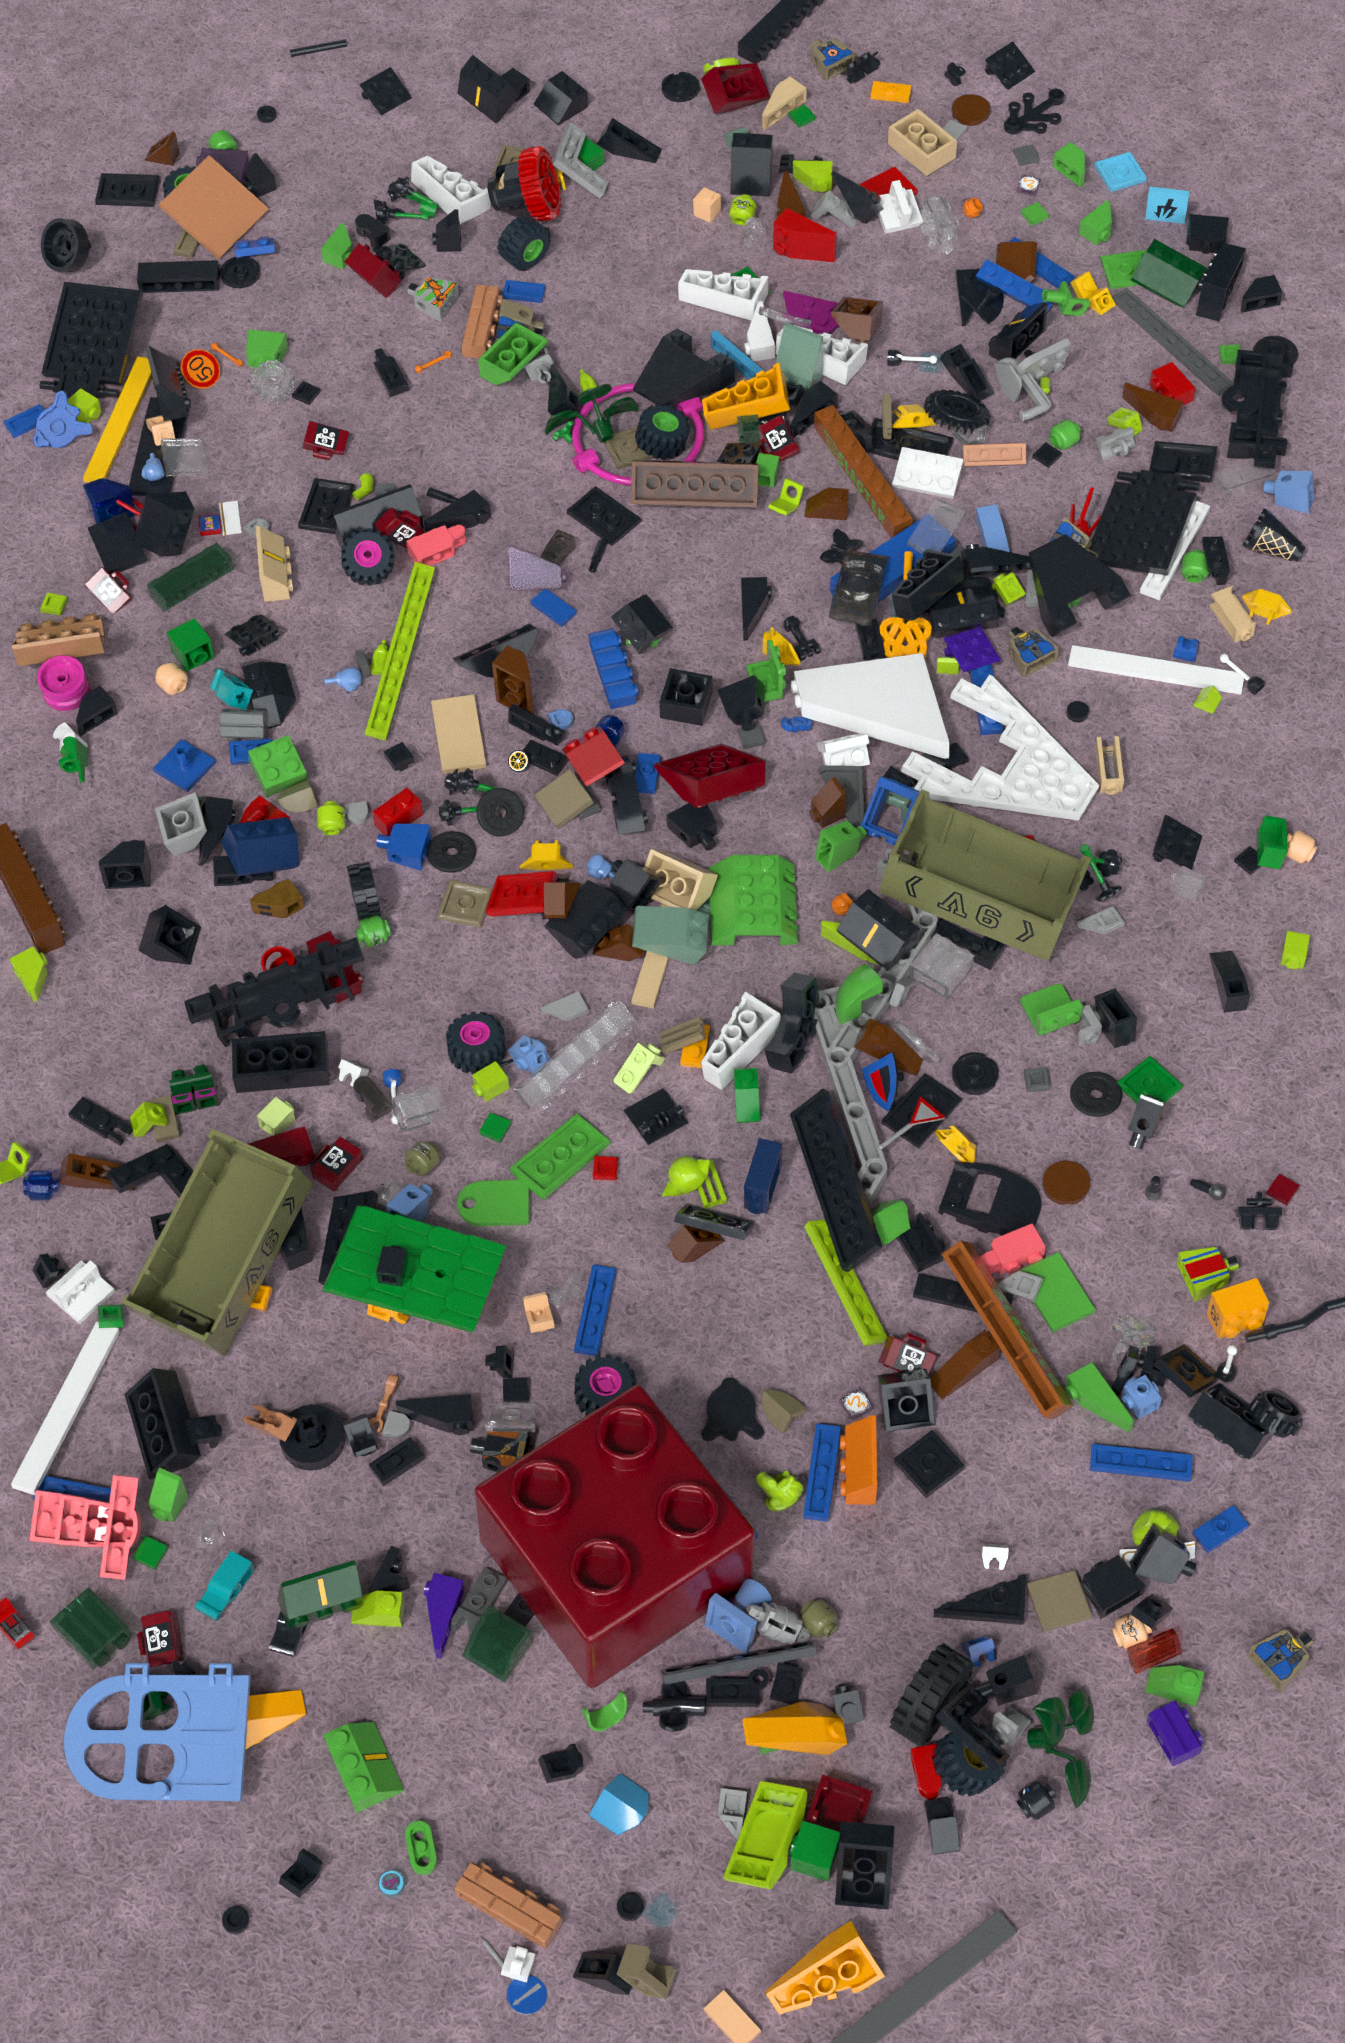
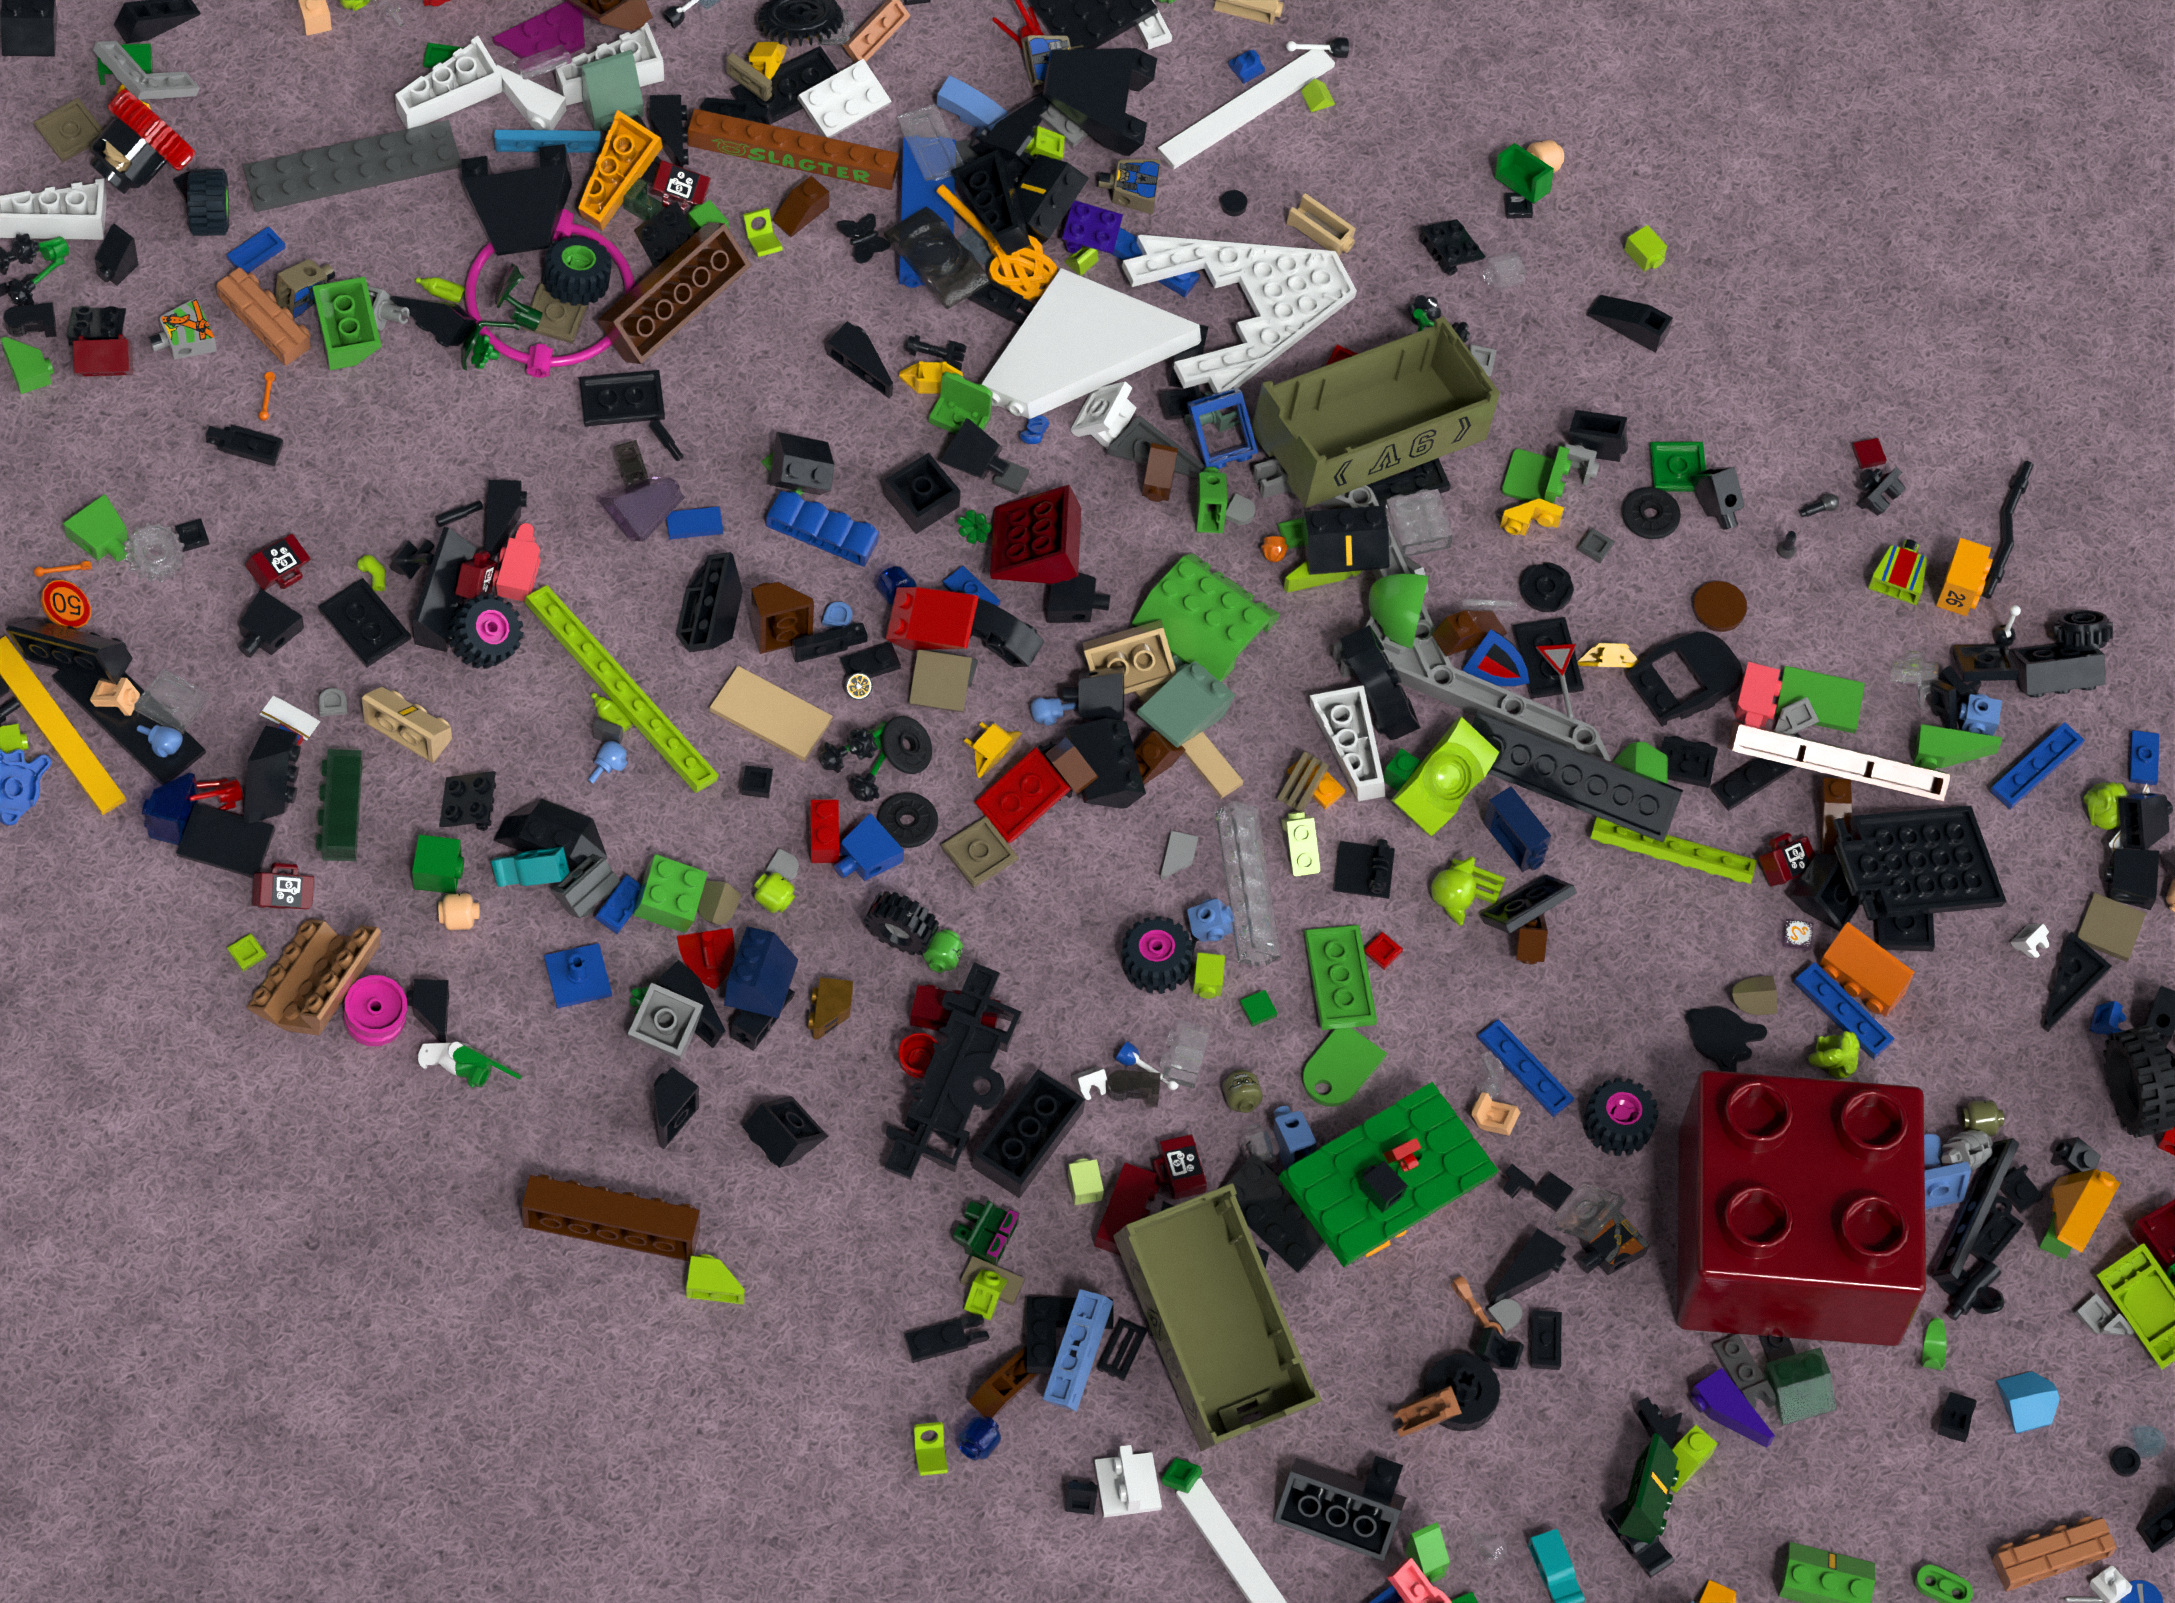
camera: 60 degrees left, 5 degrees up
(140, 1190) = (1078, 1350): none -> medium blue piece
(276, 463) = (268, 625): none -> black torso
(427, 1261) = (1404, 1154): none -> red tile
(627, 291) = (352, 166): none -> dark grey plate
(694, 740) = (974, 526): none -> green plant
(762, 1107) = (1446, 777): none -> lime slope
(853, 869) = (1240, 511): none -> light grey tile
(978, 1434) = (1918, 862): none -> black plate
(1012, 1021) = (1518, 519): none -> yellow slope

